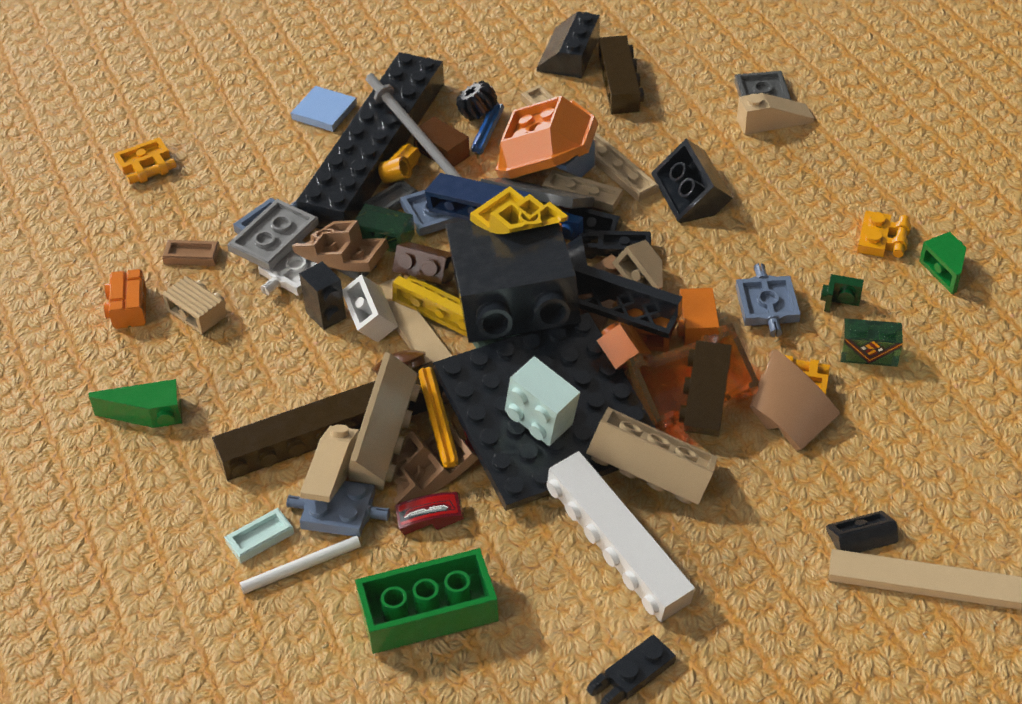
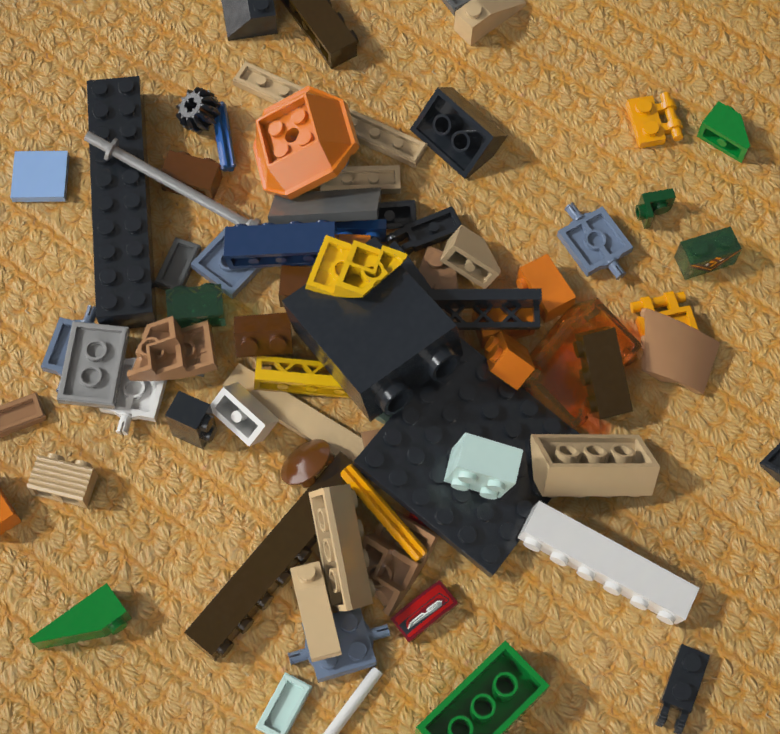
camera: 30 degrees left, 20 degrees up
(399, 165) = (168, 226): light orange piece -> none

